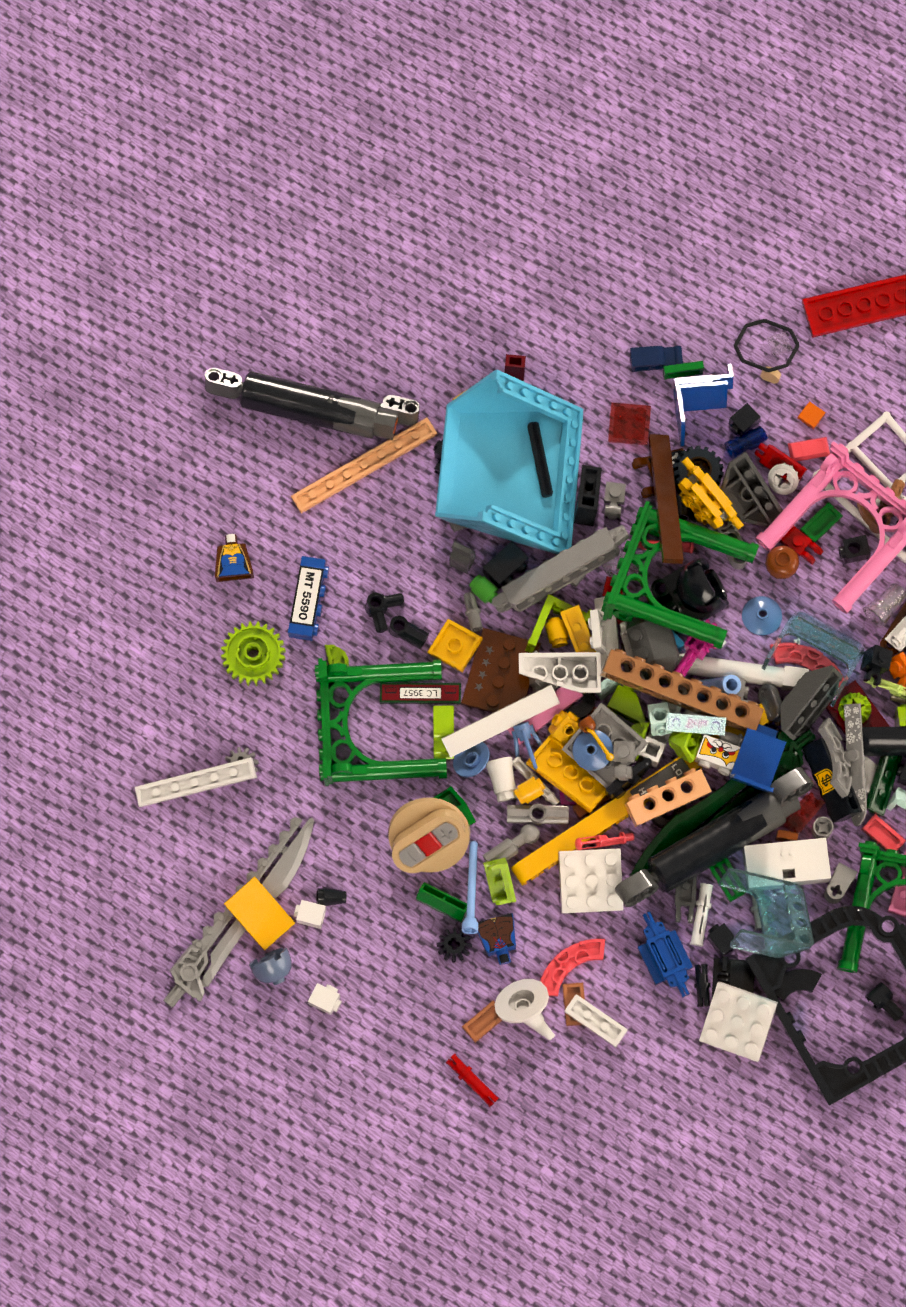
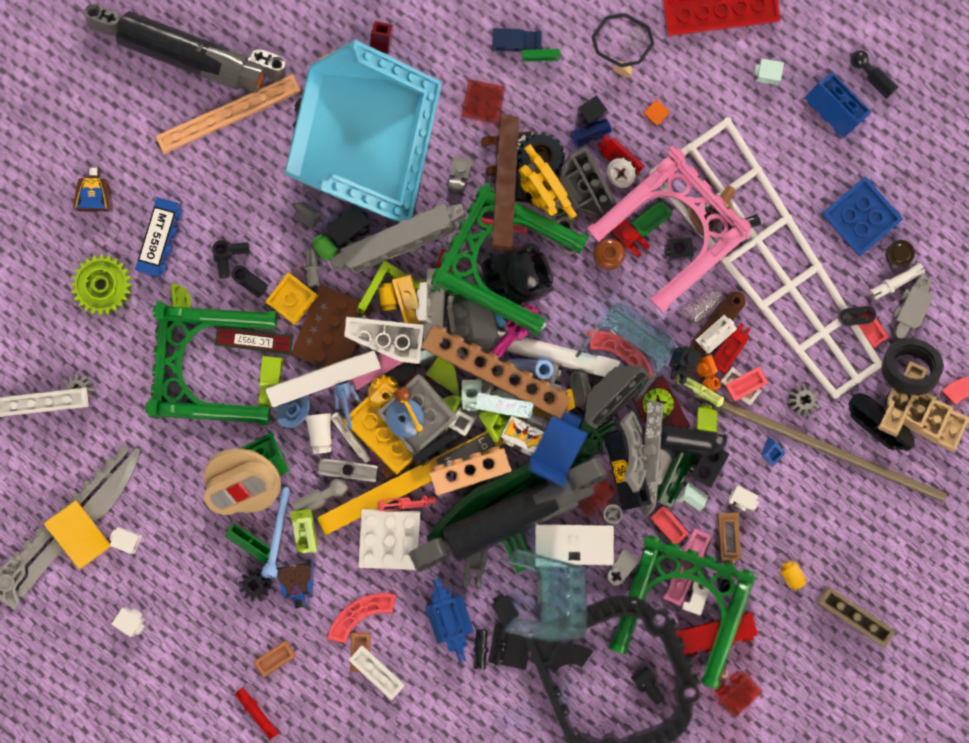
camera: 10 degrees right, 10 degrees up
(272, 967) = (84, 586): sand blue cylinder -> none
(330, 896) = (146, 525): black cone -> none
(524, 1003) = (311, 649): white piece -> none
(529, 790) = (342, 447): yellow brick -> none
(540, 459) = (393, 129): black axle -> none
(588, 495) = (434, 167): black slope -> none
(624, 753) = (433, 426): light grey plate -> none
(700, 394) = (554, 81): blue piece -> none
(703, 906) = (488, 582): white pin -> none
(738, 1021) = (508, 689): white plate -> none
(758, 624) = (578, 310): medium blue dish -> none
(784, 836) = (578, 518): dark orange tile -> none
(809, 449) = (649, 145): coral tile -> none

